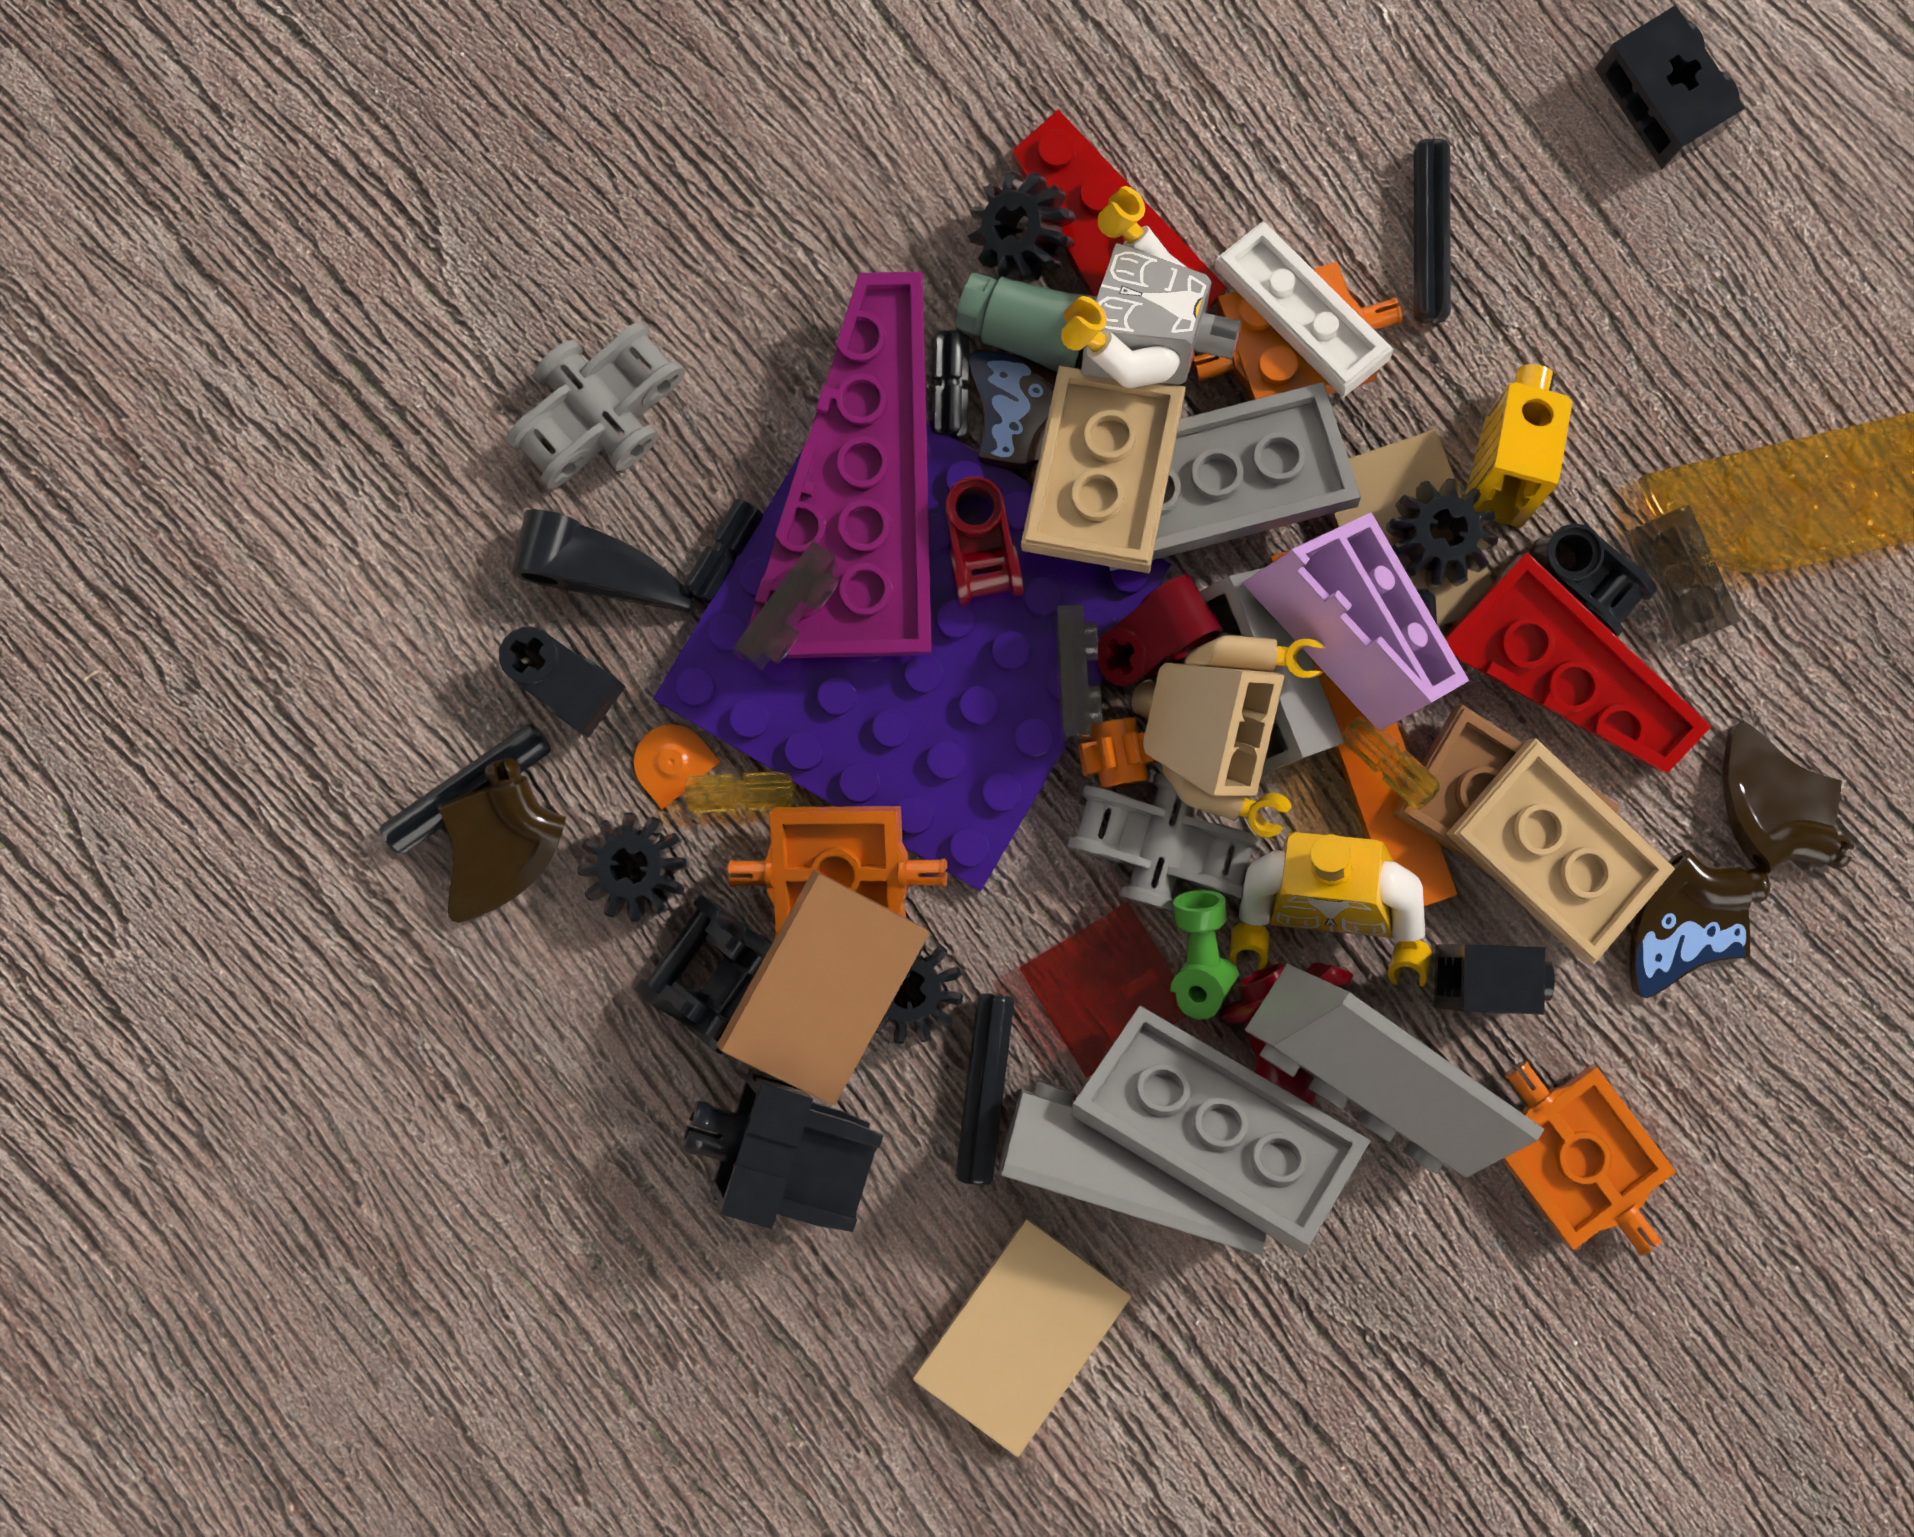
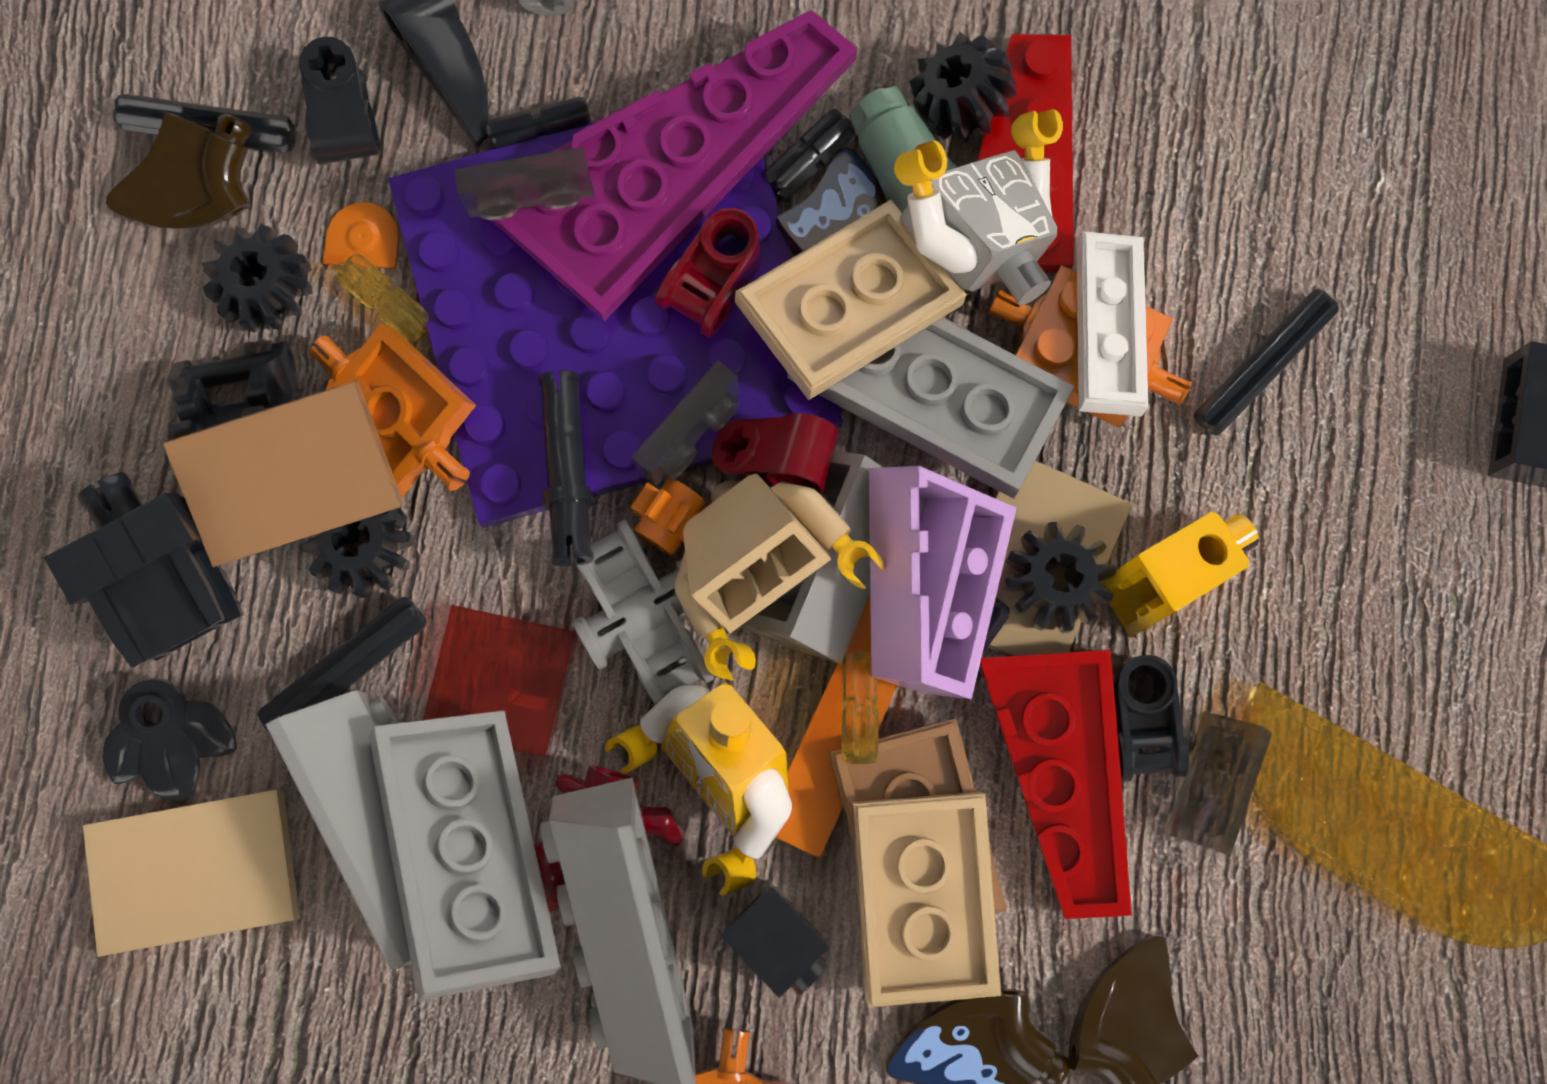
camera: 45 degrees right, 5 degrees down
(917, 1268) = (169, 750): none -> black plate
(1015, 790) = (567, 491): none -> black pin
(1205, 976) = (572, 737): bright green leg -> none

